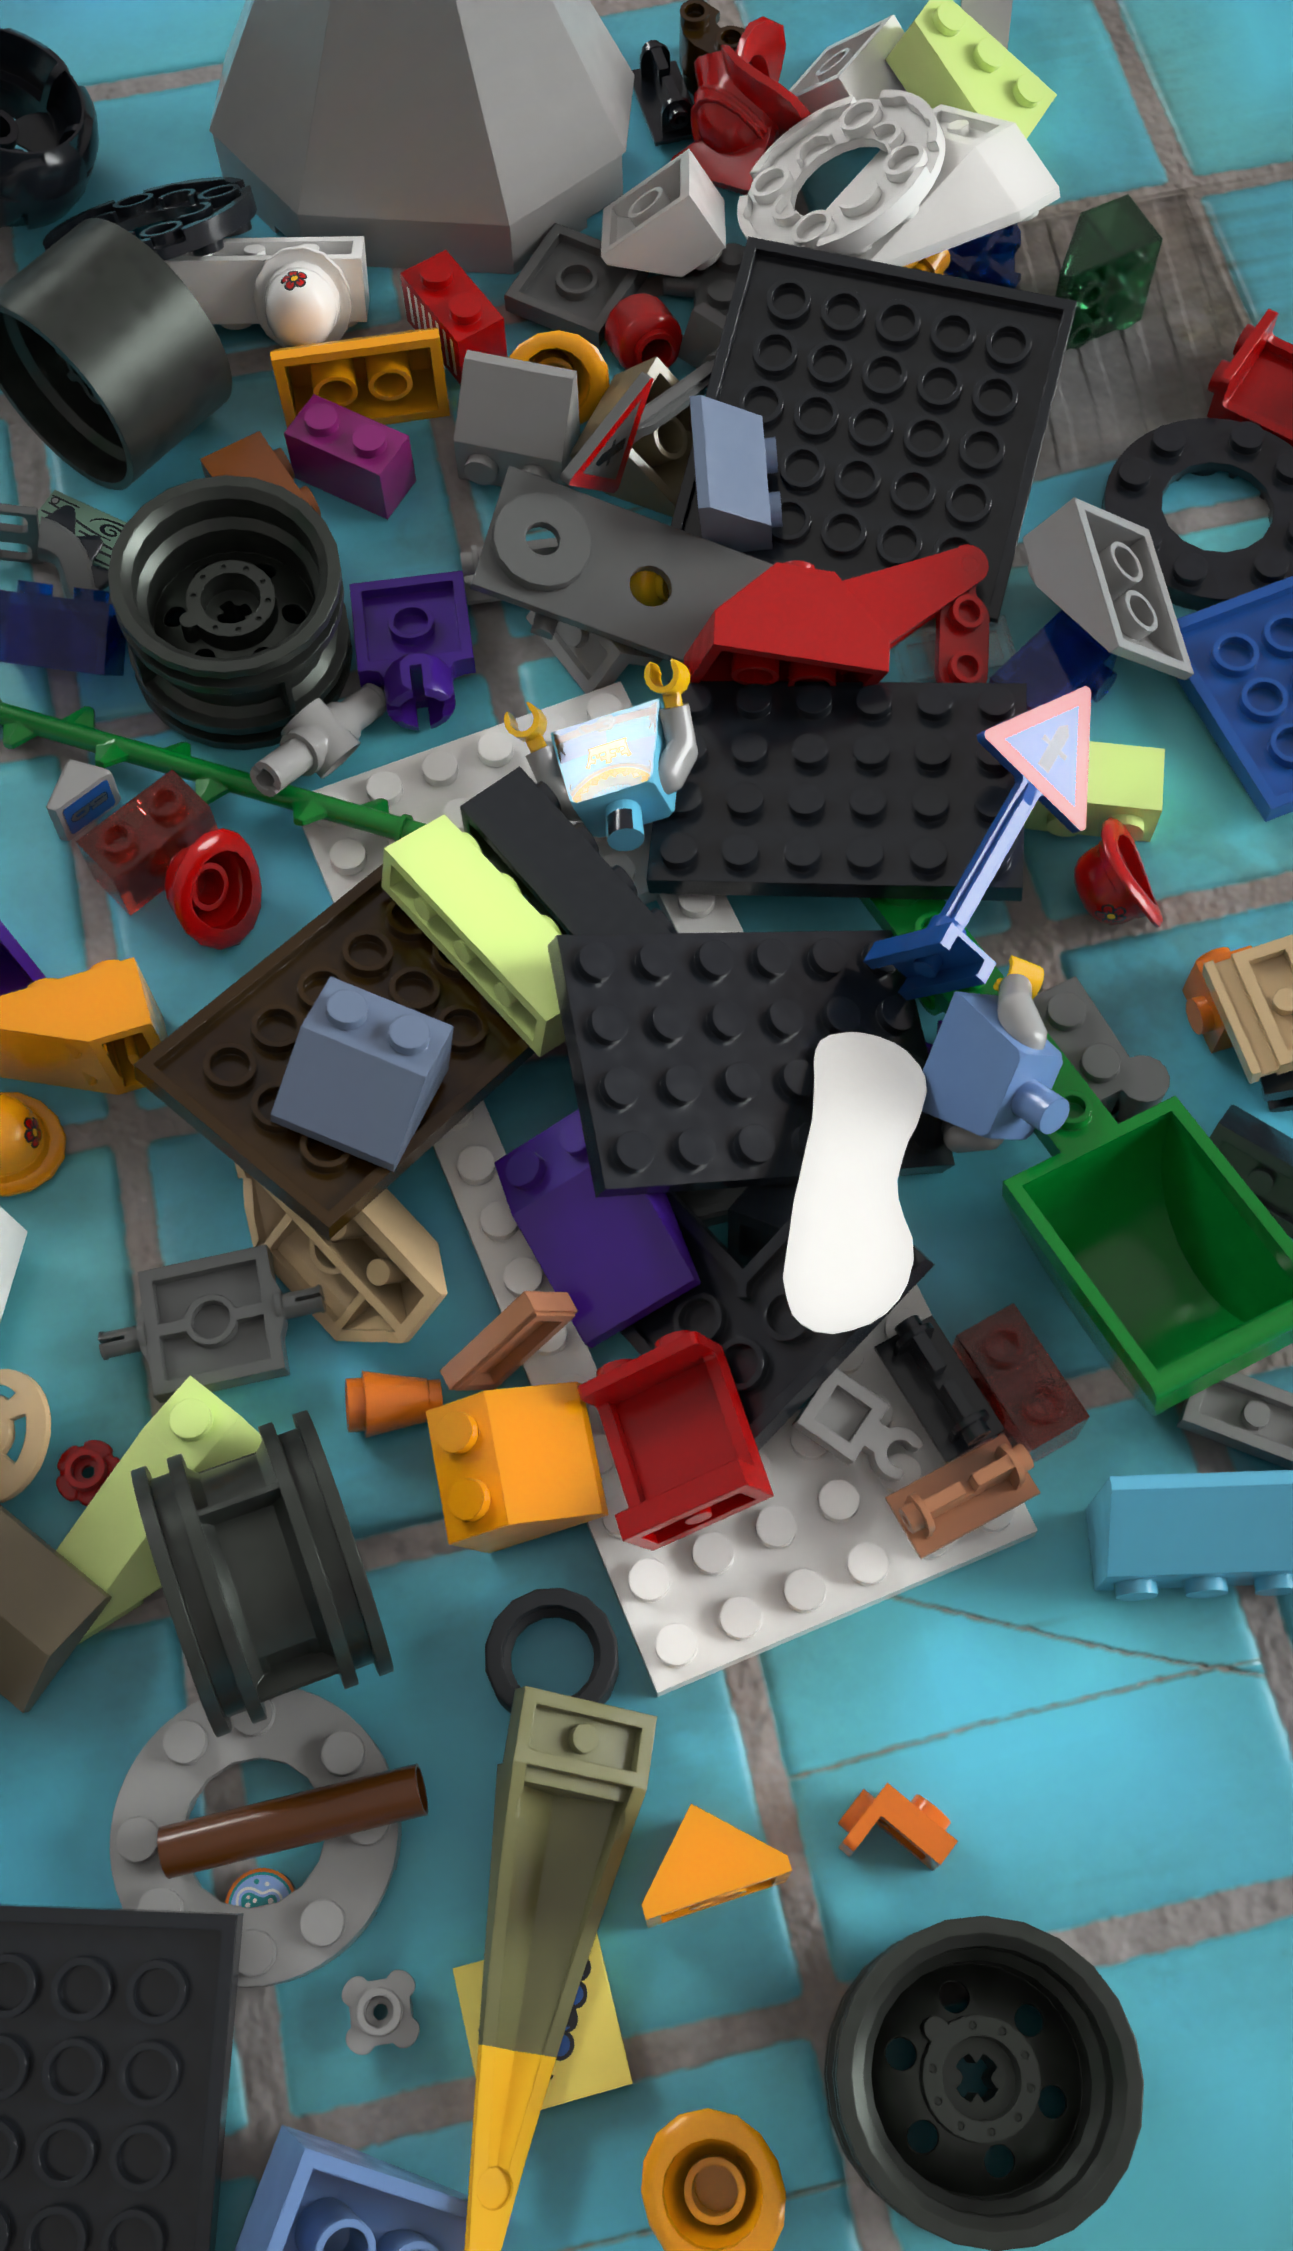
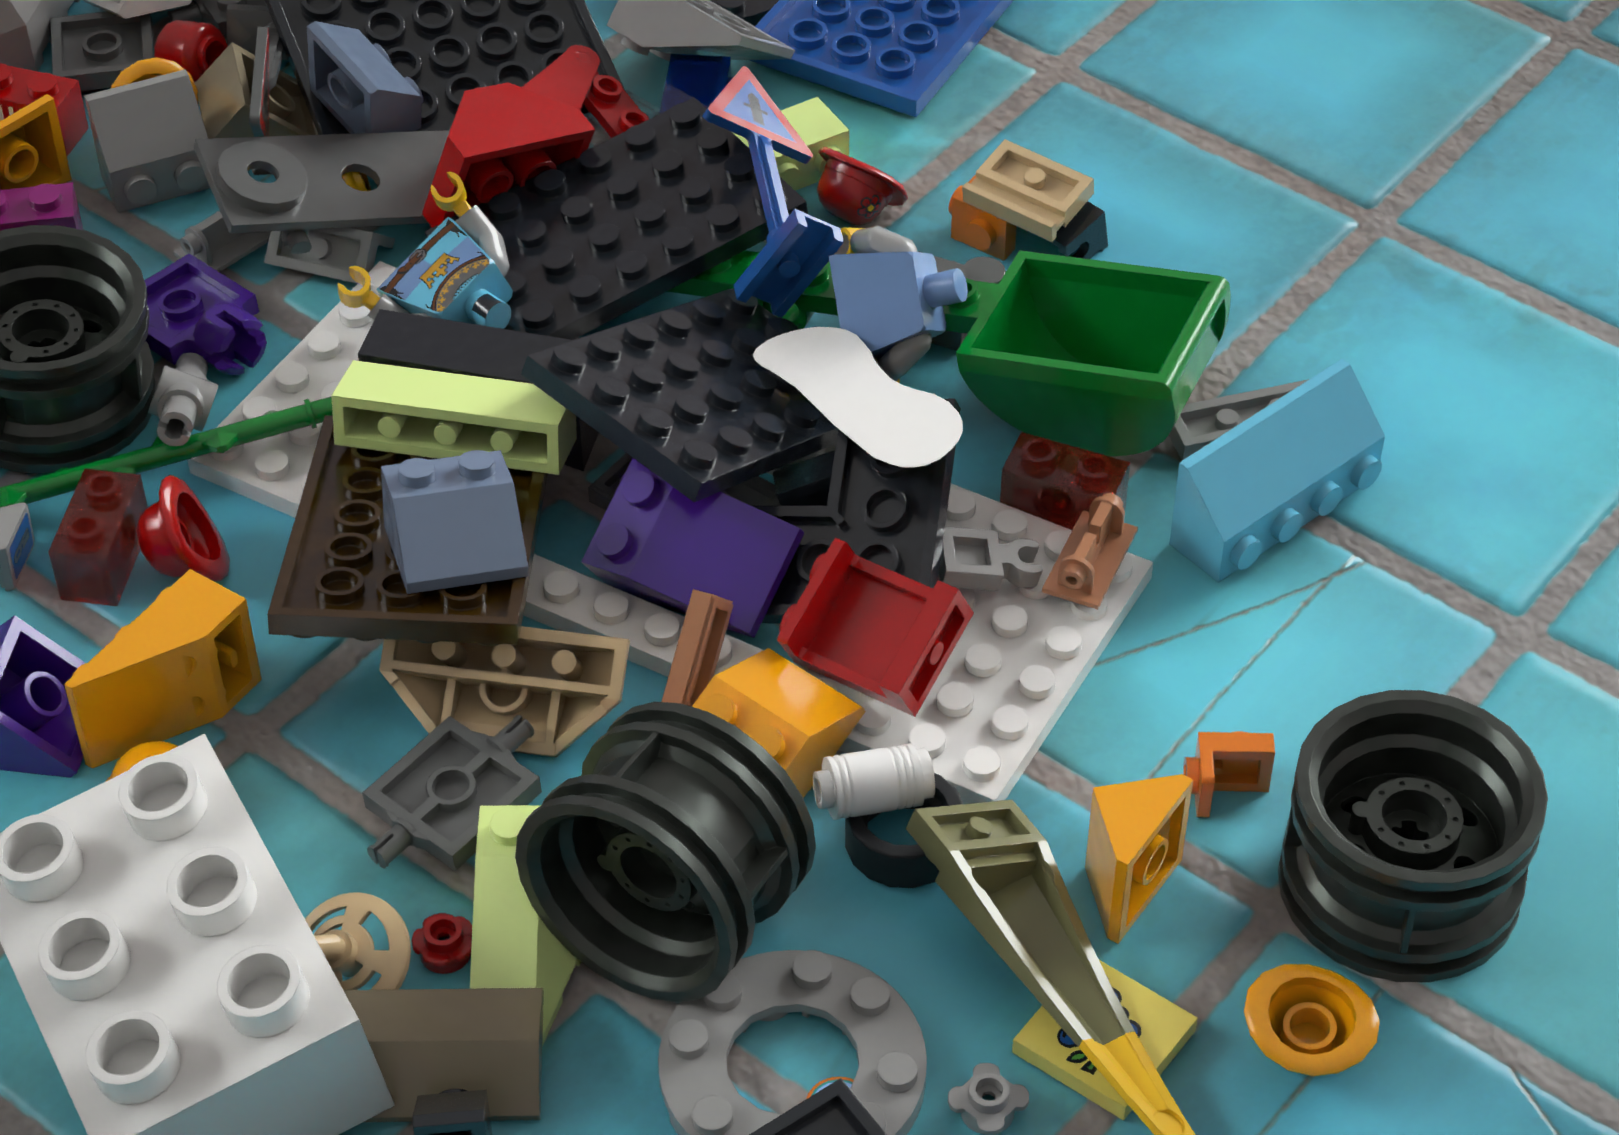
camera: 40 degrees left, 20 degrees down
(292, 1821) = (819, 1015): reddish brown piece -> none
(532, 1613) = (874, 781): none -> white head
(938, 1387) = (1027, 513): black hinge -> none

